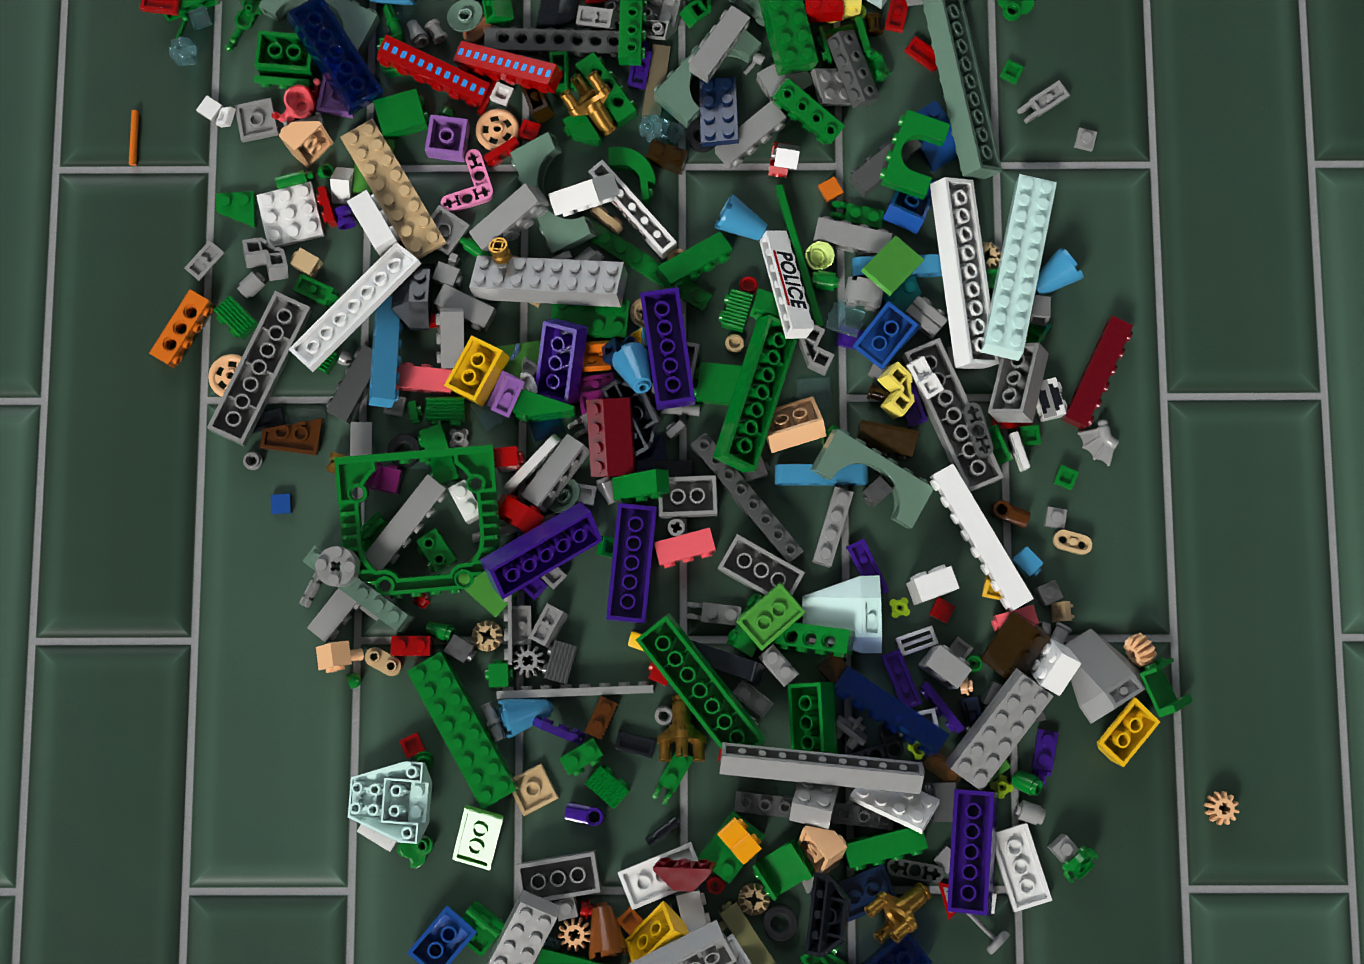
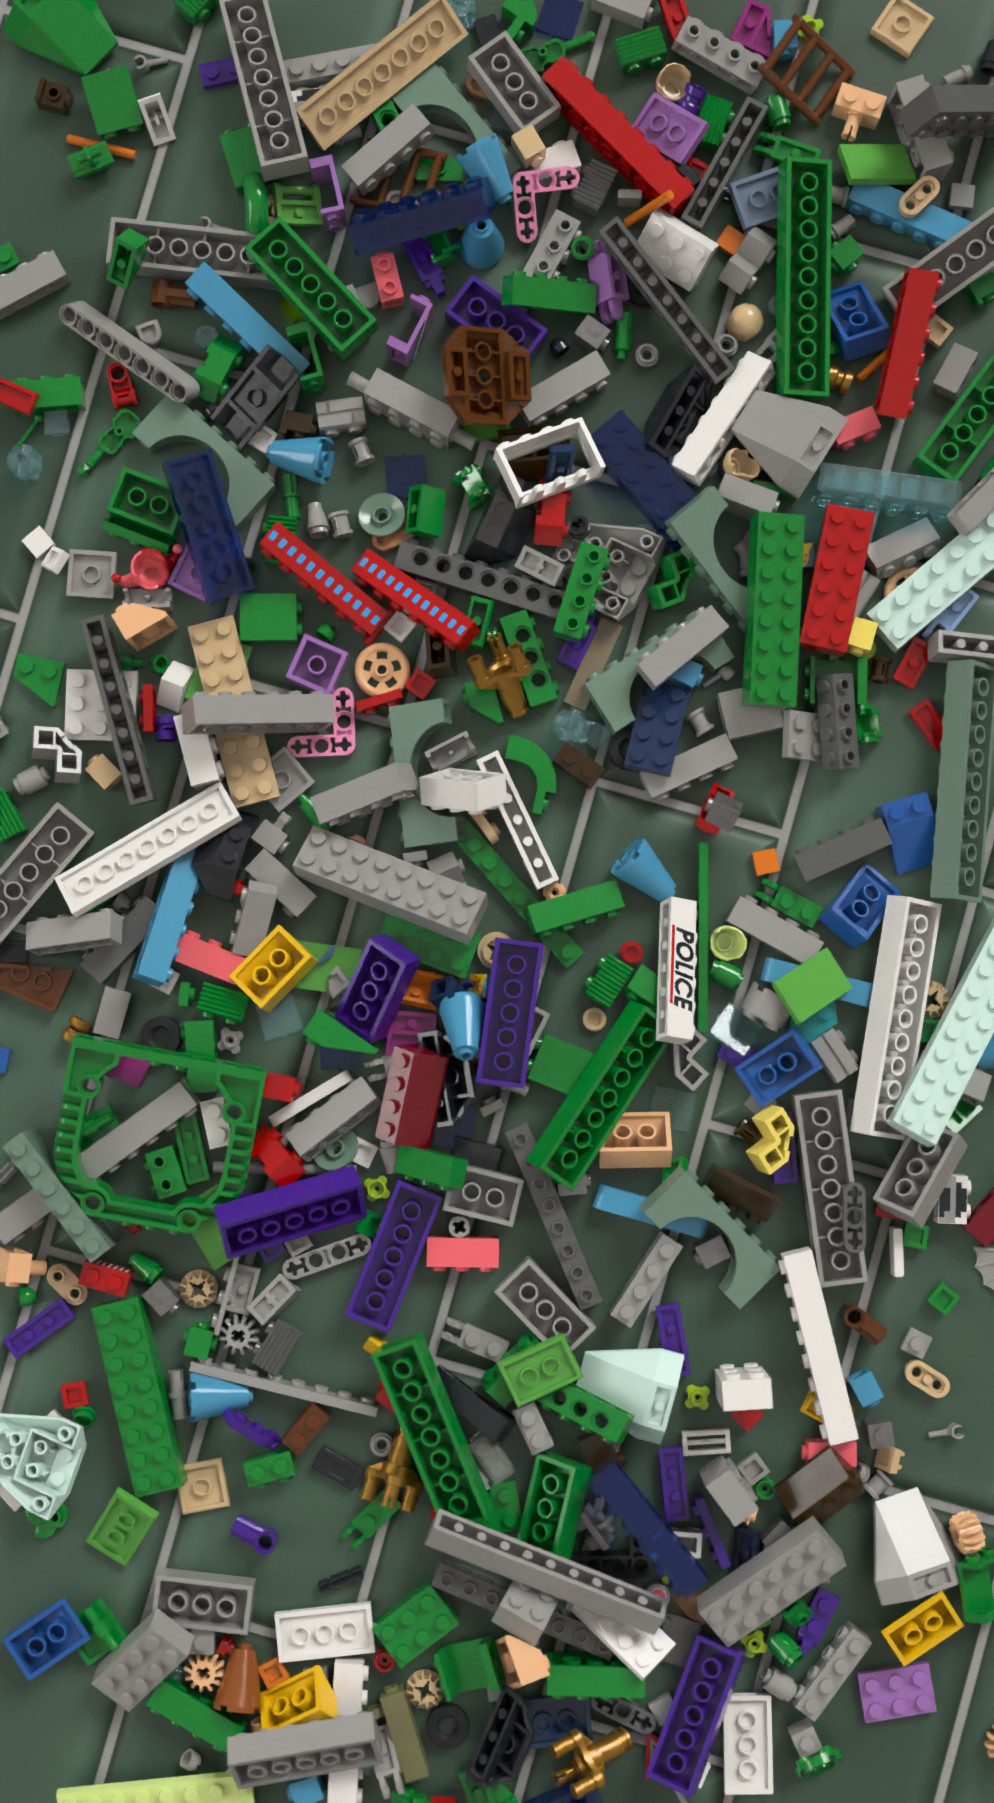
camera: 10 degrees right, 5 degrees up
(304, 210) = (119, 710): none -> dark grey brick
(315, 387) = (73, 934): none -> light grey brick
(316, 291) = (108, 810): green hinge -> none
(327, 562) = (28, 1174): light grey brick -> none
(370, 701) = (39, 1327): none -> dark purple plate
(410, 180) = (257, 713): none -> light grey brick
(451, 528) = (192, 1149): none -> green plate
(500, 250) = (341, 833): pearl gold wheel -> none
(505, 393) = (300, 1009): medium lavender panel -> none
(530, 384) = (330, 1002): white tile -> none
(567, 173) = (451, 752): none -> light grey hinge
(582, 584) = (326, 1253): none -> light grey beam
(599, 518) = (381, 1182): none -> lime plate
(607, 786) = (291, 1510): green brick -> none
(683, 873) = (351, 1642): dark red slope -> none
(729, 67) = (688, 675): none -> dark azure brick
(739, 840) = (426, 1624): light orange brick -> none
(749, 100) = (699, 722): none -> light grey bush
(775, 733) = (507, 1508): none -> green wing
(807, 112) = (765, 761): green brick -> none
(897, 174) = (849, 871): green arch -> none
(924, 377) = (809, 1134): white slope -> none
(1000, 448) = (875, 1240): green plate -> none
(1026, 750) = (797, 1613): none -> green brick
(1054, 667) = (859, 1529): white brick -> none
(1068, 789) = (831, 1670): none -> light grey brick
(1102, 578) = (946, 1432): none -> light grey hand
(1124, 793) = (896, 1691): none -> medium lavender plate

